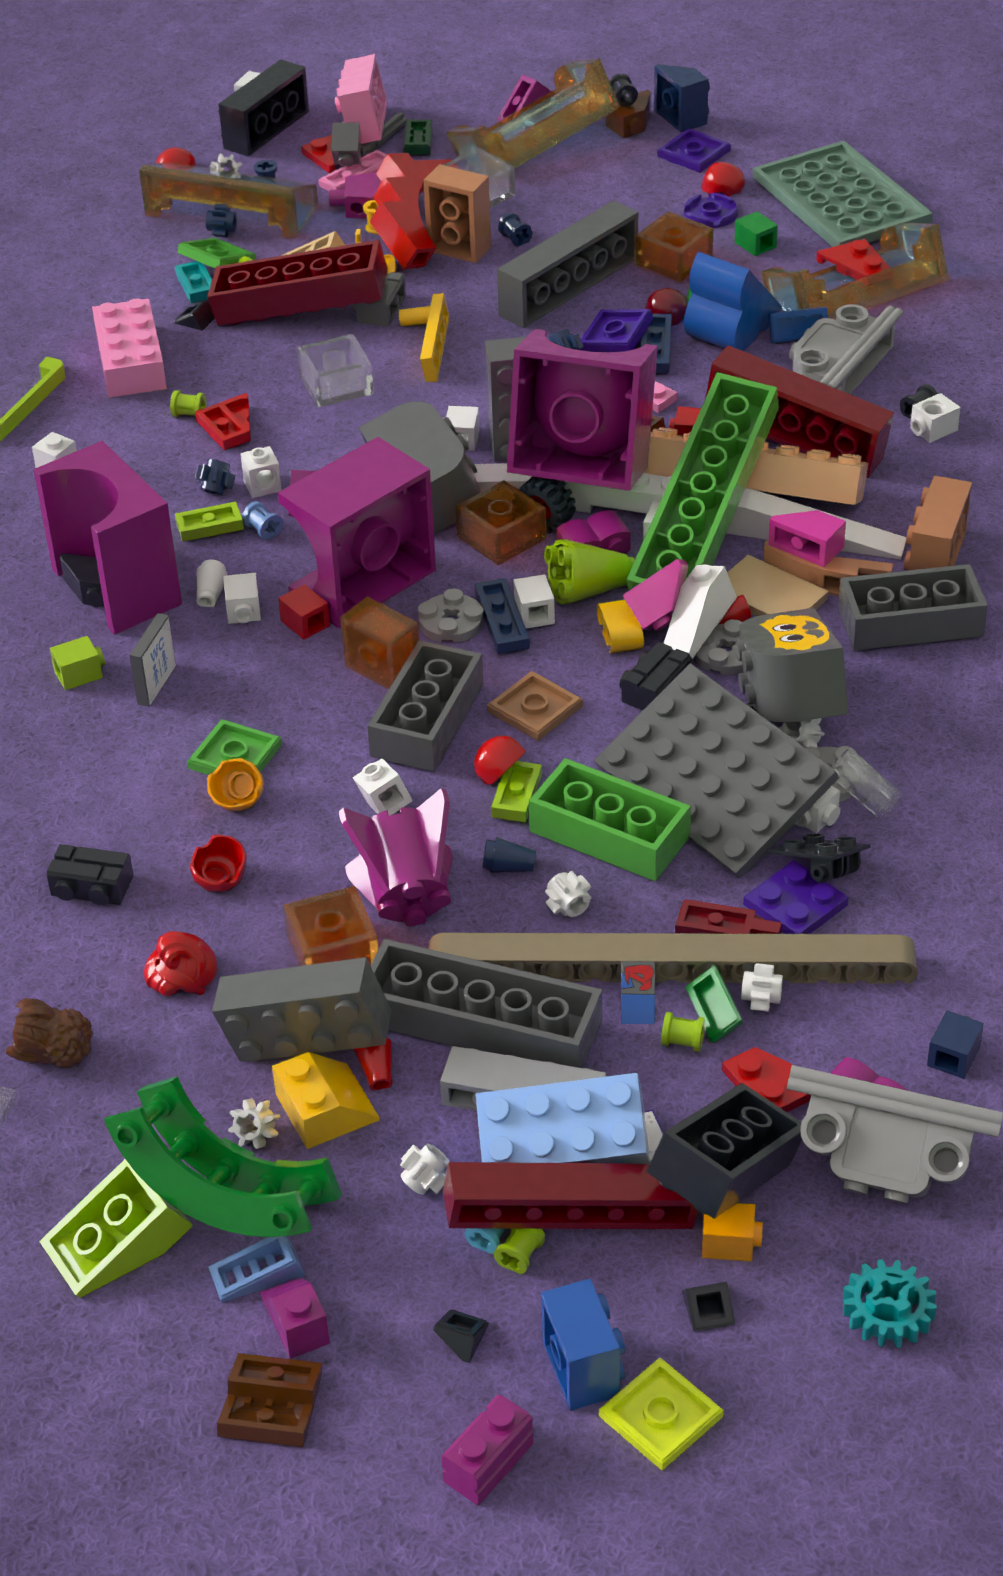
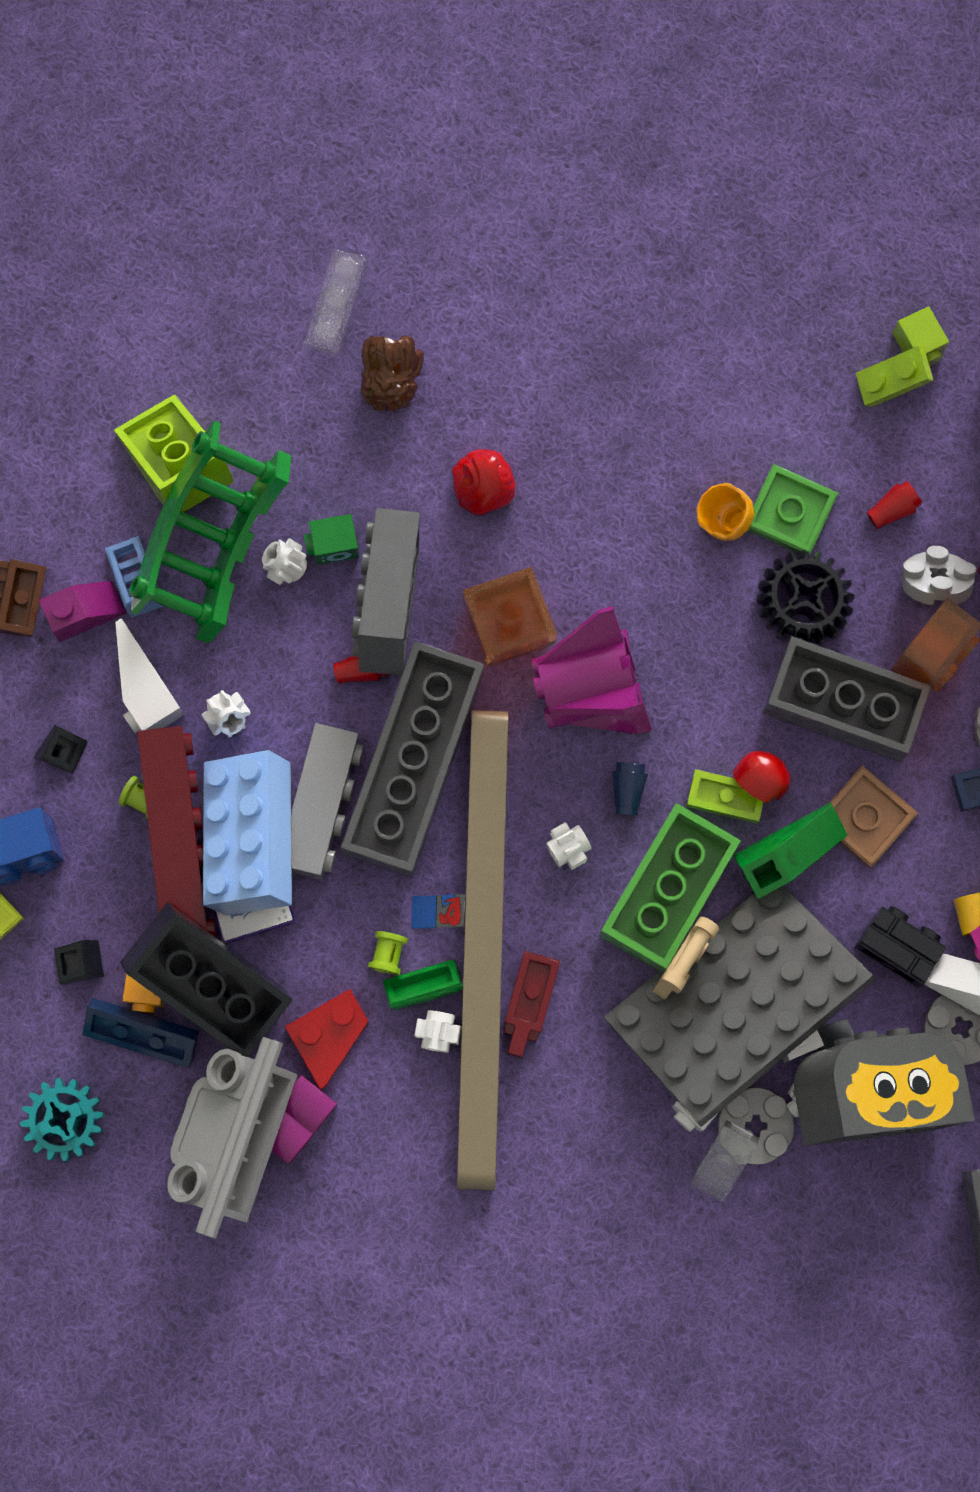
camera: 85 degrees right, 35 degrees up
(89, 875) = (605, 385): black brick -> none
(114, 674) = (894, 376): none -> lime plate
(152, 659) = (909, 412): tile -> none
(218, 858) = (617, 497): red hair -> none
(231, 1081) = (332, 539): none -> green brick
(237, 680) = (895, 505): none -> red cone
(312, 648) = (938, 576): none -> light grey plate
(321, 1098) = (314, 621): yellow slope -> none
(324, 737) = (798, 586): none -> black gear
(382, 787) = (717, 658): white brick -> none
(388, 1248) = (142, 688): none -> white slope
(573, 738) = (790, 850): none -> green slope
(699, 797) = (689, 952): none -> tan plate
(784, 1236) = (140, 1032): none -> dark blue plate
(795, 900) = (568, 1076): dark purple plate -> none
(828, 857) = (619, 1103): black hinge -> none
(955, 1044) = (362, 1216): dark blue brick -> none

